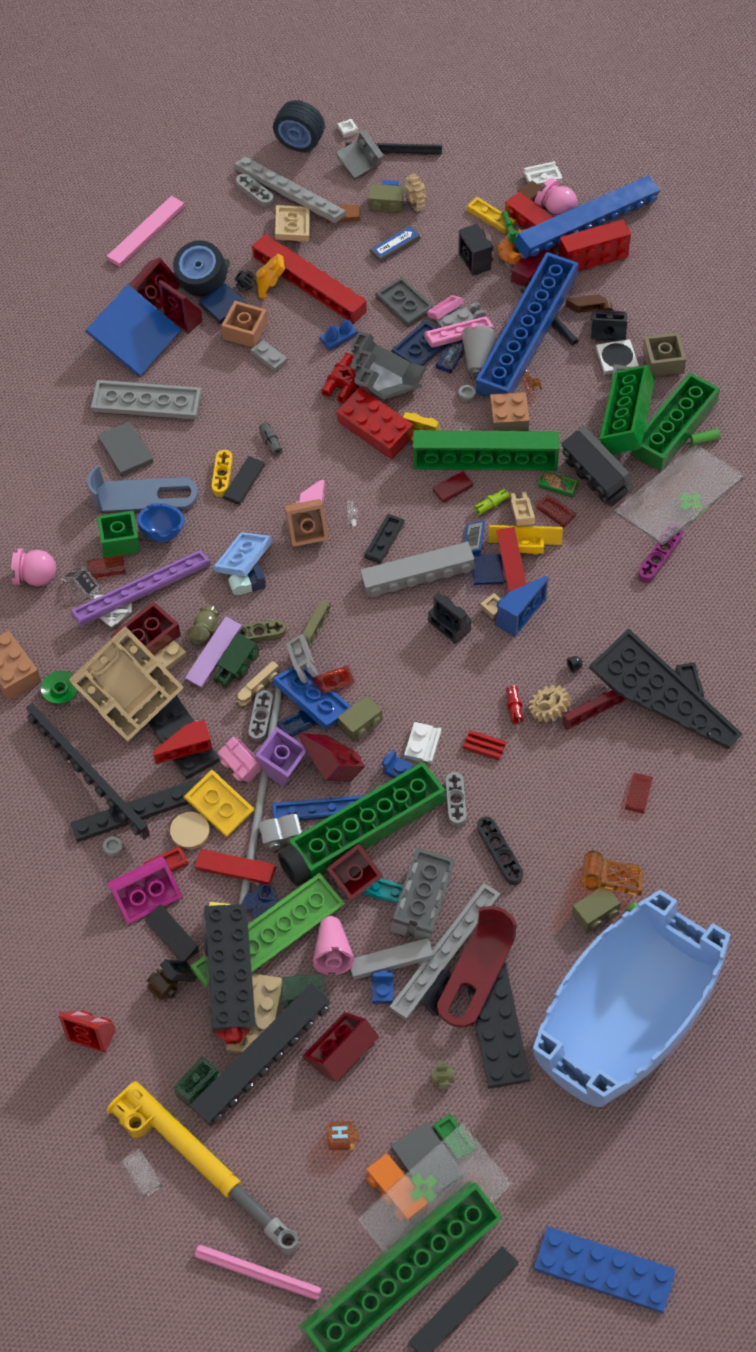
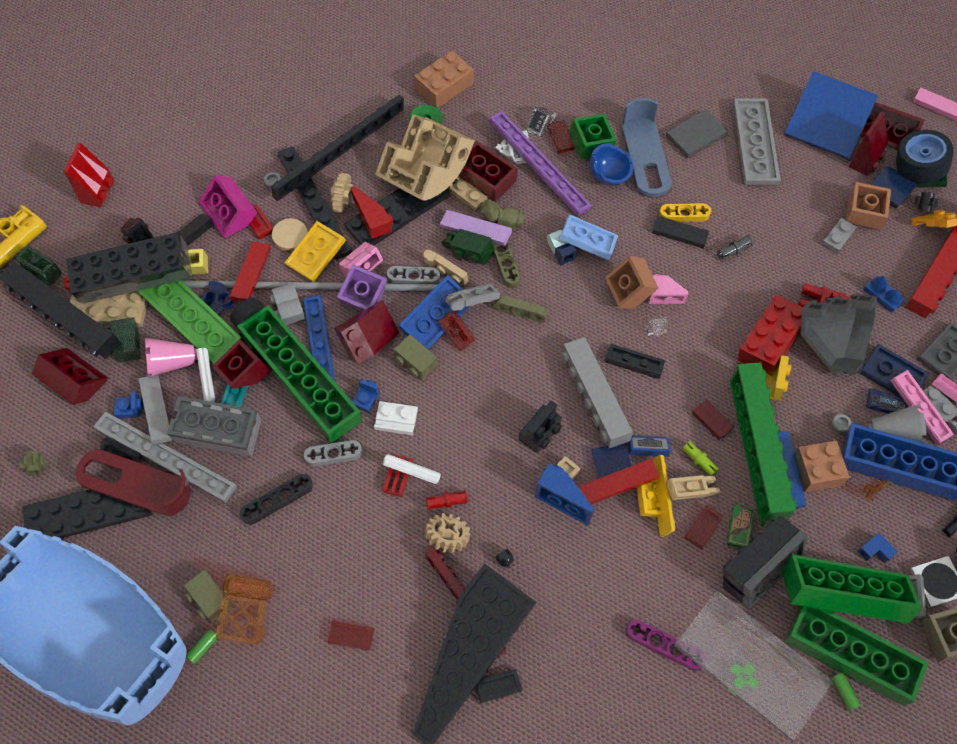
camera: 80 degrees right, 5 degrees up
(34, 567) = (544, 76): bright pink tile -> none
(152, 769) = (341, 192): none -> tan gear
(296, 723) = (405, 302): clear blue tile -> none
(358, 910) = (205, 374): none -> white axle
(482, 729) = (411, 469): none -> white axle
(584, 391) = (879, 546): none -> blue piece

